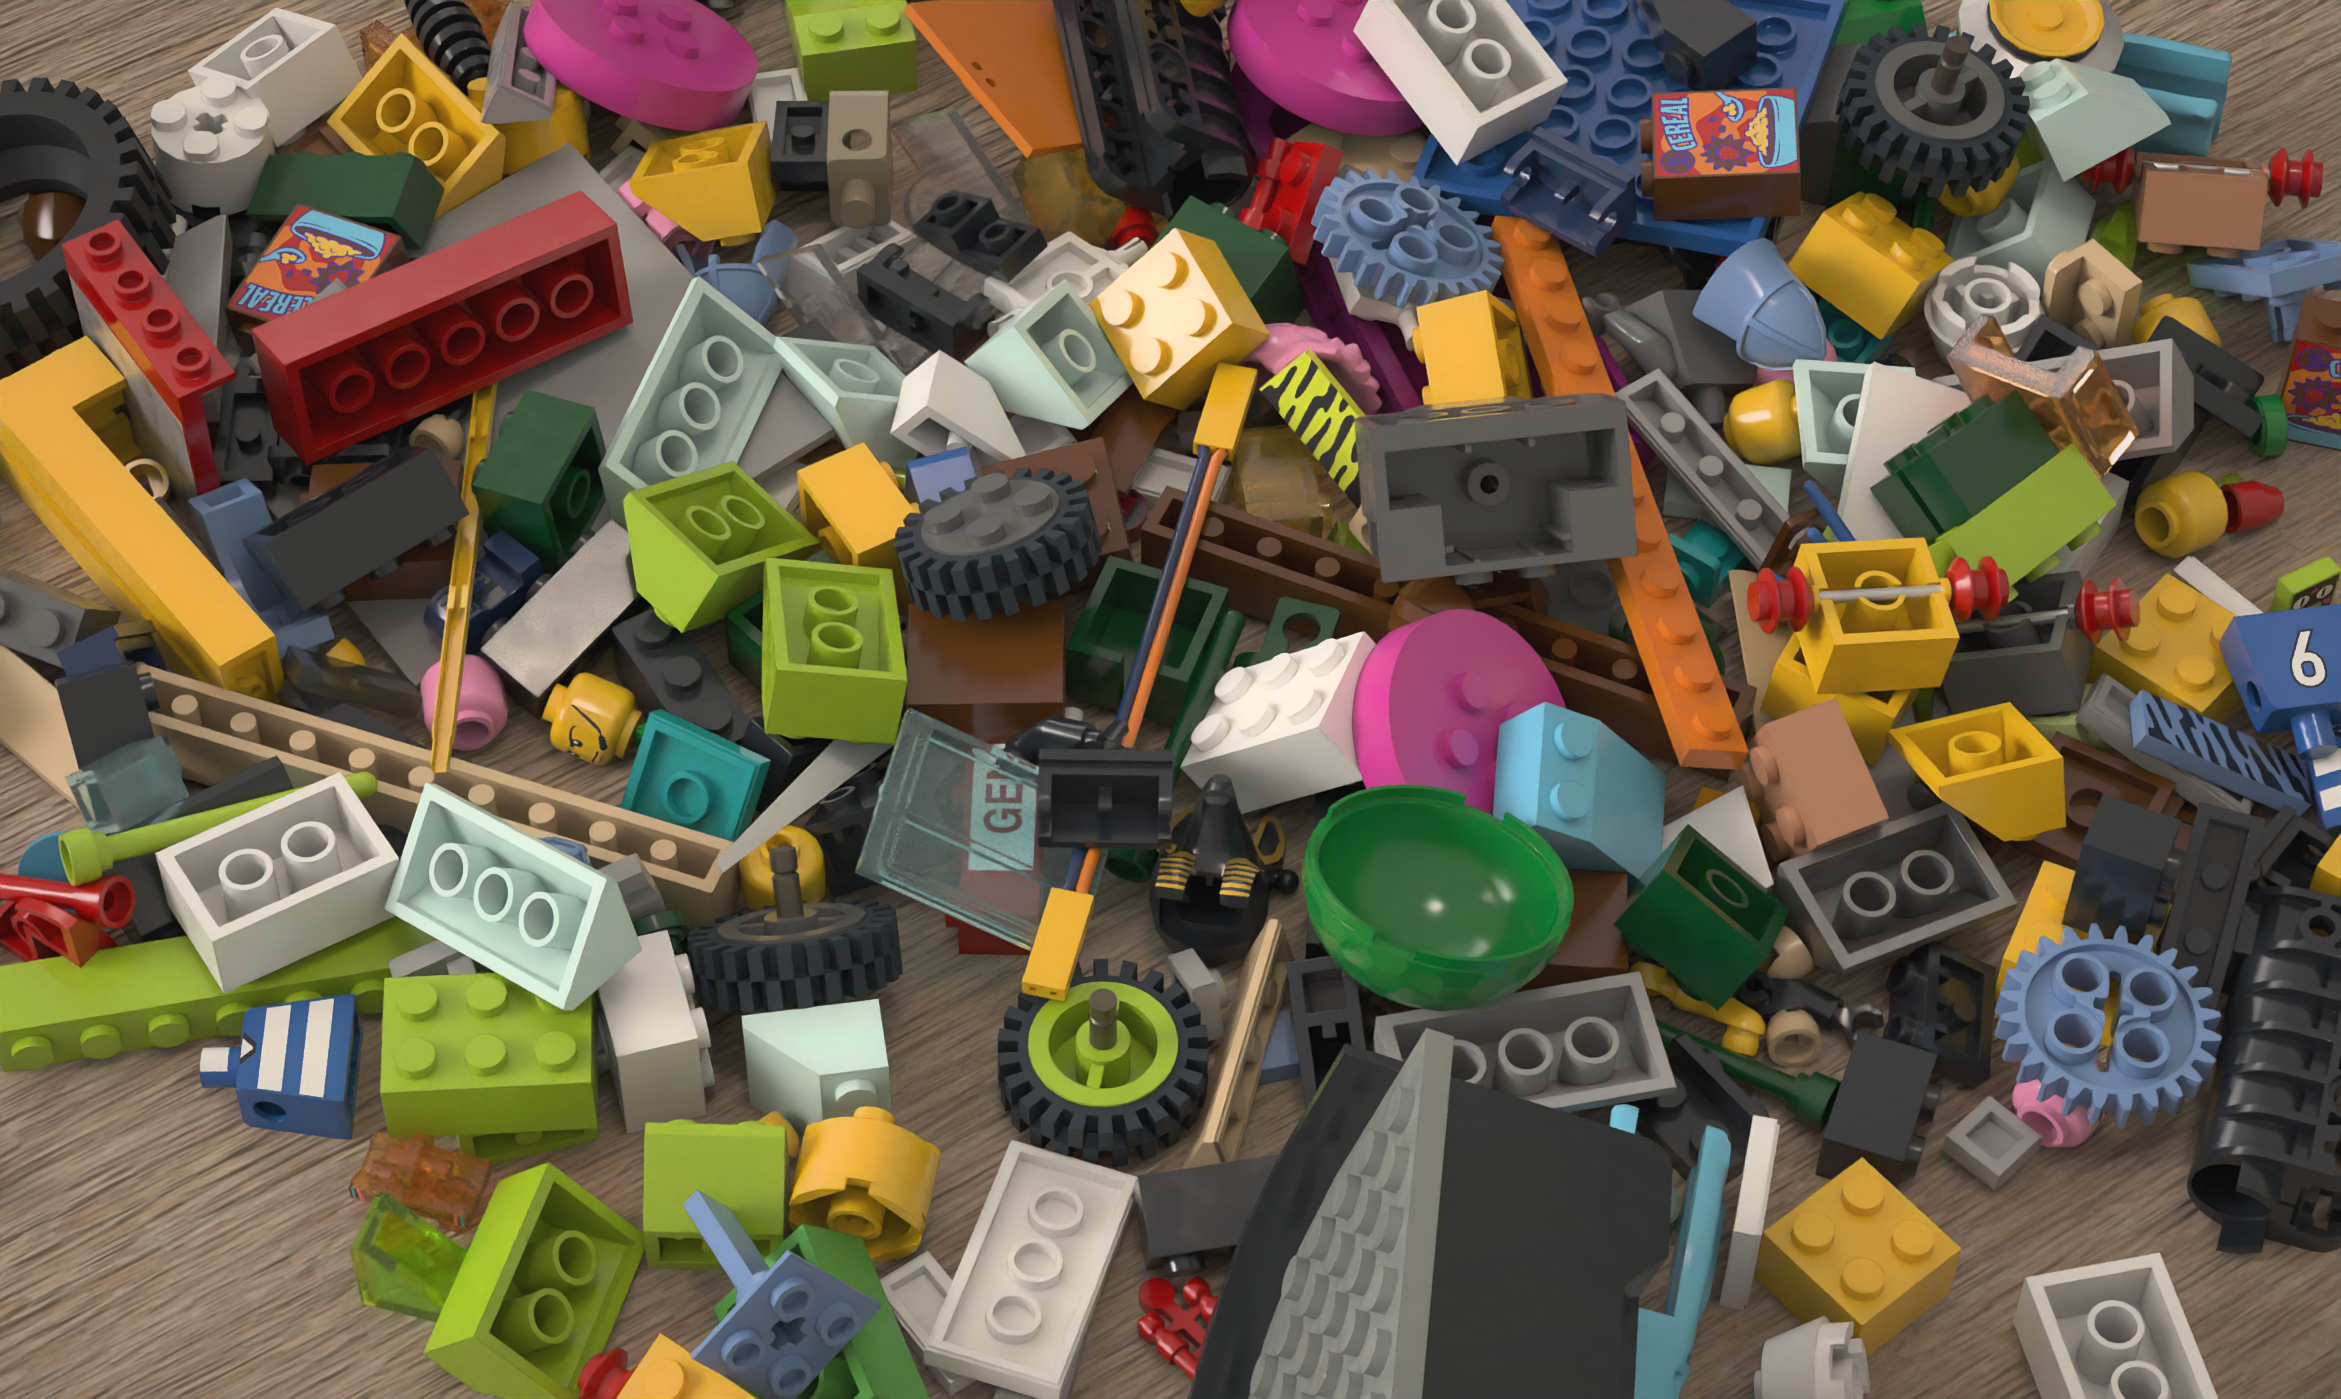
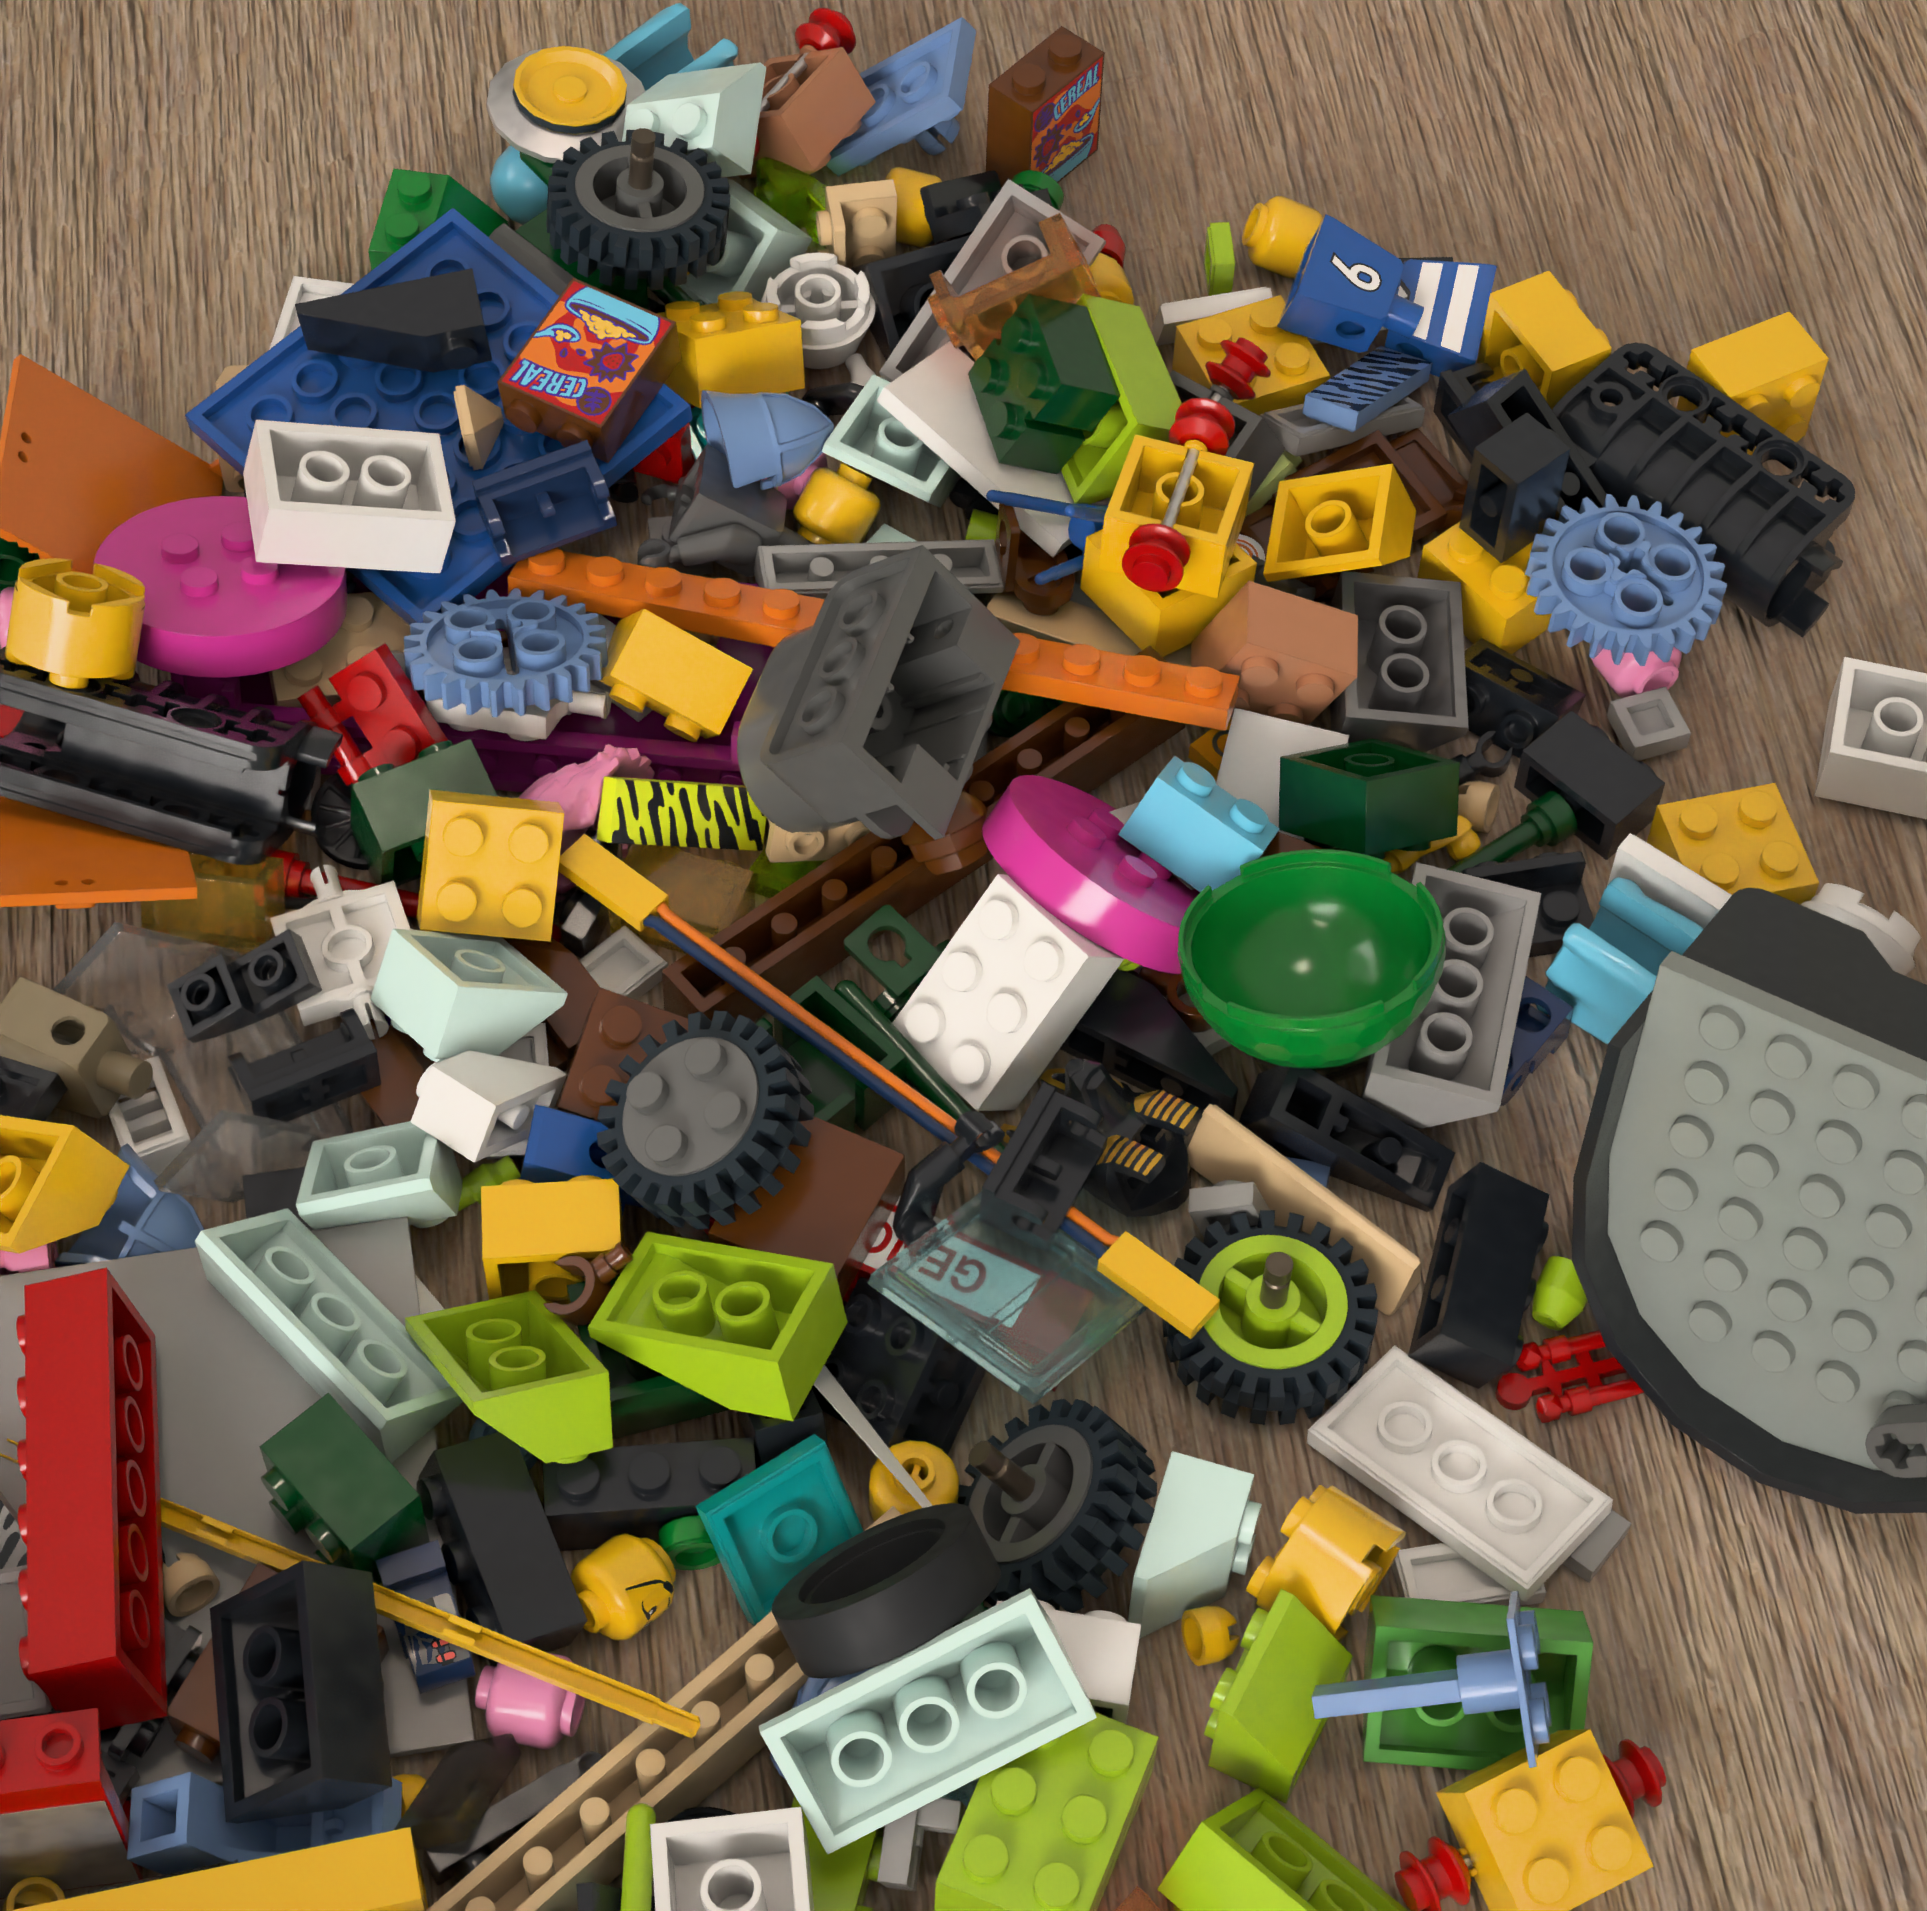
camera: 65 degrees left, 5 degrees up
(606, 825) = (886, 1591): none -> black tyre
(824, 549) = (597, 1286): none -> reddish brown piece
(1614, 111) = (479, 424): none -> tan slope

